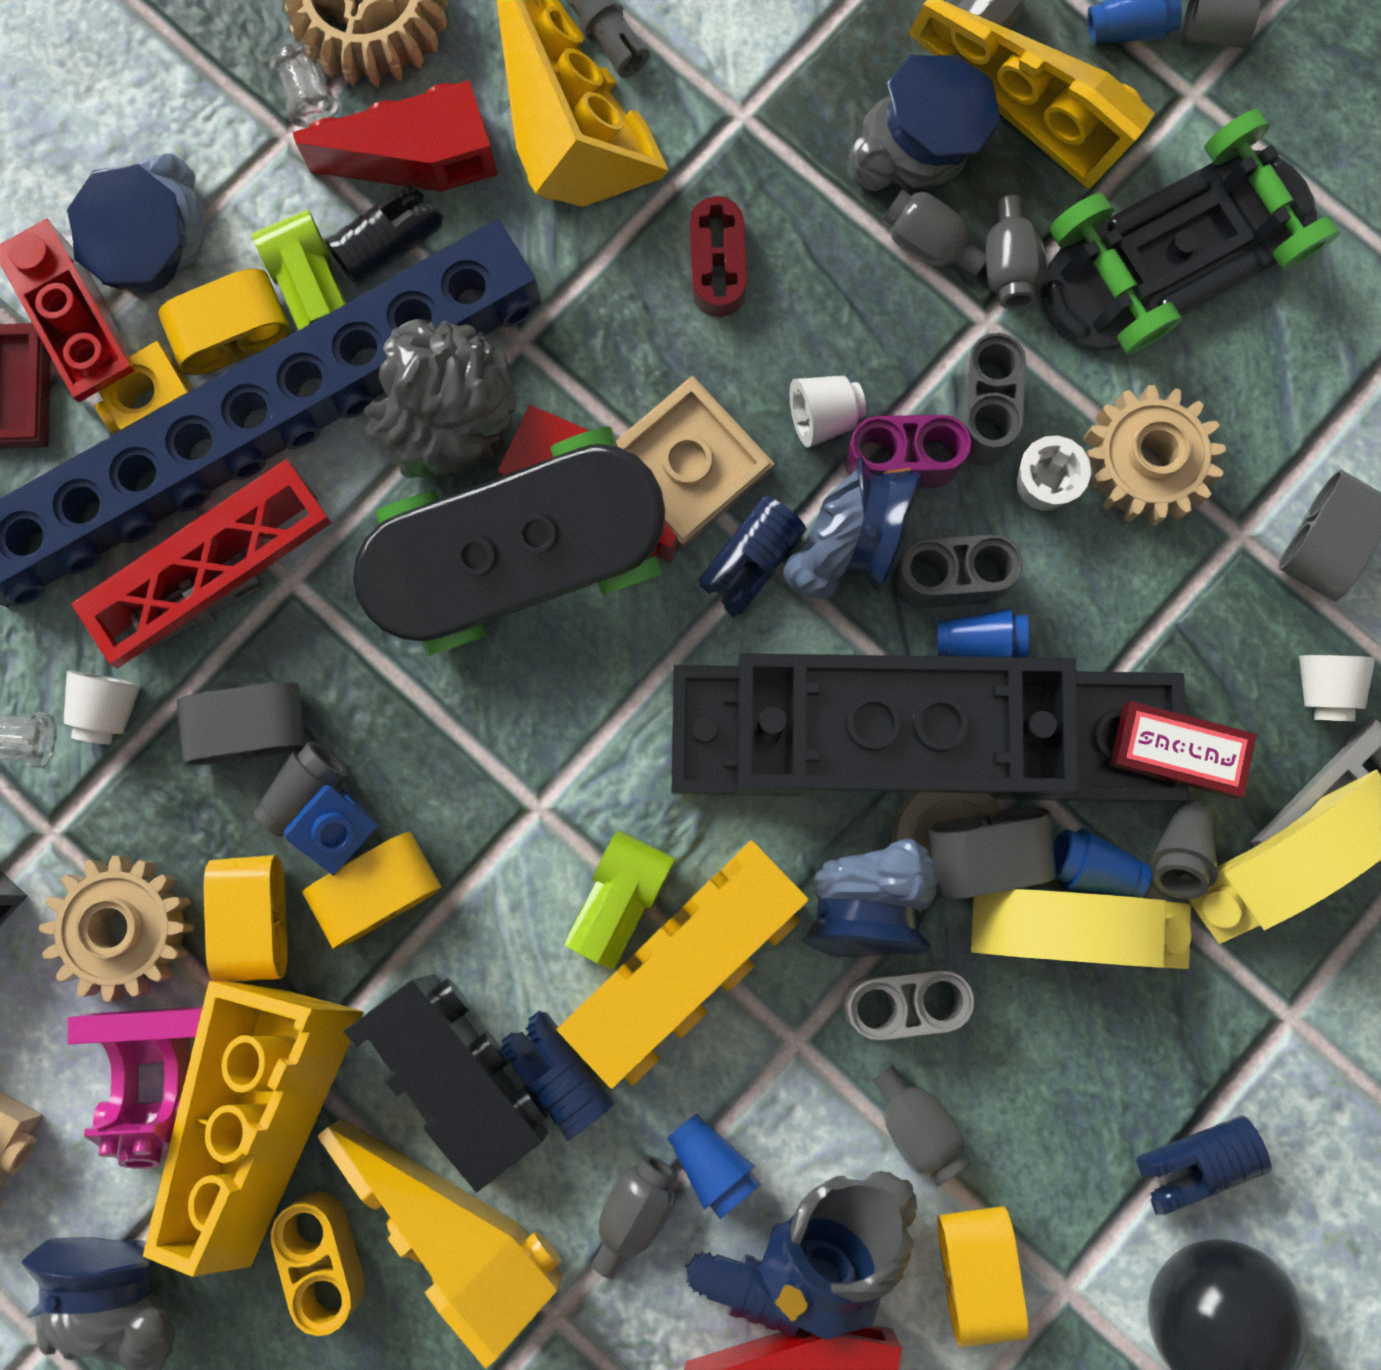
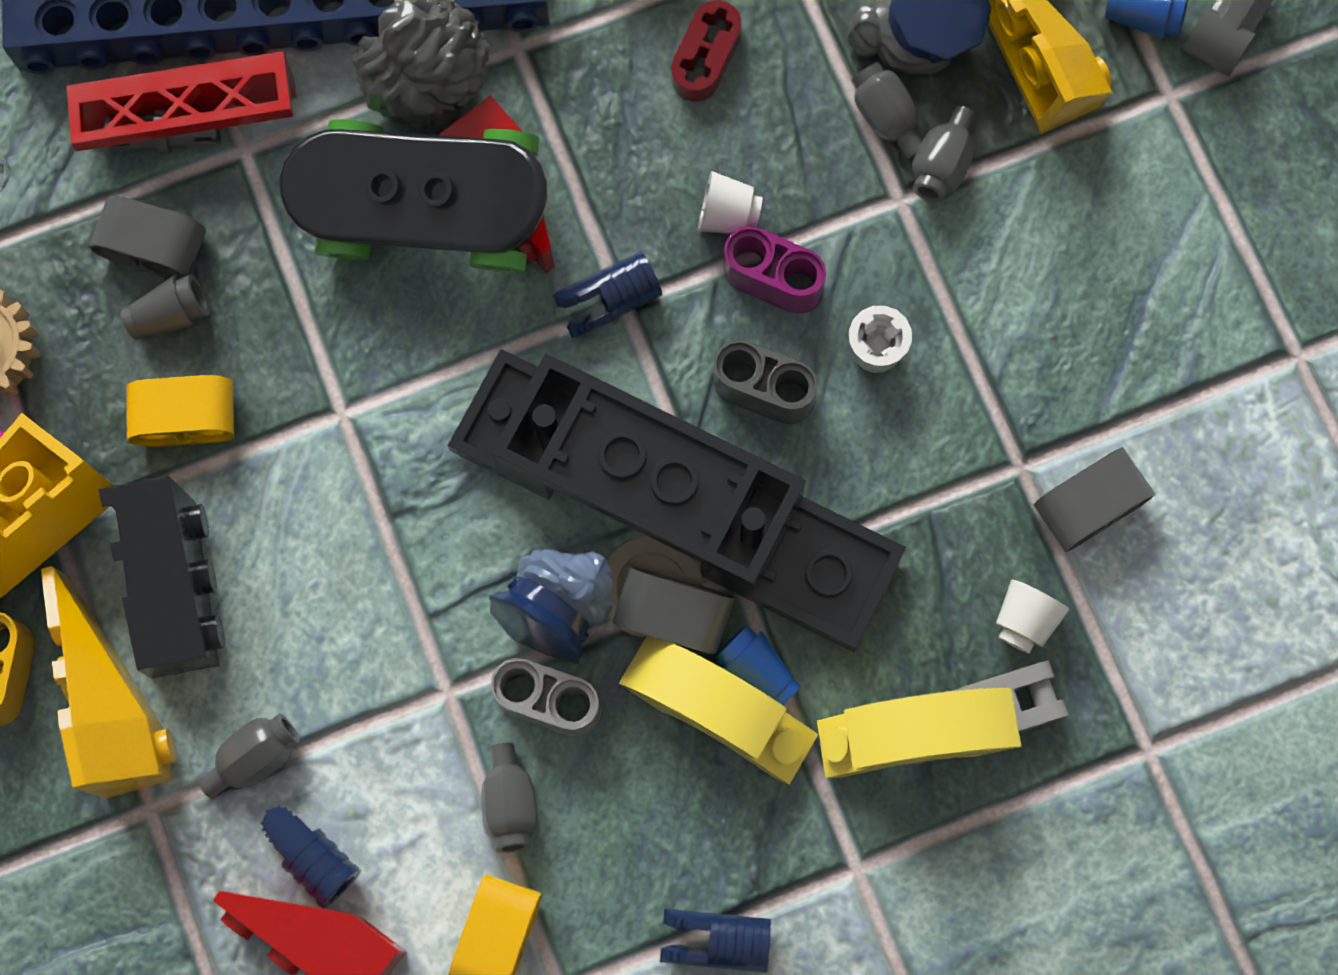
camera: 30 degrees right, 5 degrees down
(98, 706) = (47, 174): white hat -> none
(245, 919) = (74, 386): yellow beam -> none
(331, 828) = (171, 344): blue bracket -> none
(556, 1075) = (247, 621): dark blue hinge -> none
(623, 888) = (378, 499): lime piece -> none
(682, 965) = (386, 580): yellow wedge -> none
(696, 457) = (600, 200): tan tile -> none
(713, 1166) = (330, 750): blue cone -> none
(840, 1253) = (390, 855): piece -> none
(854, 531) = (695, 311): piece -> none
(985, 635) = (764, 441): blue cone -> none
(992, 399) = (863, 260): dark grey beam -> none
(1142, 269) = (1089, 209): black piece -> none
(1173, 434) = (981, 338): tan gear -> none
(1183, 750) = (869, 604): tile -> none
(1186, 854) = (831, 687): dark grey cone -> none

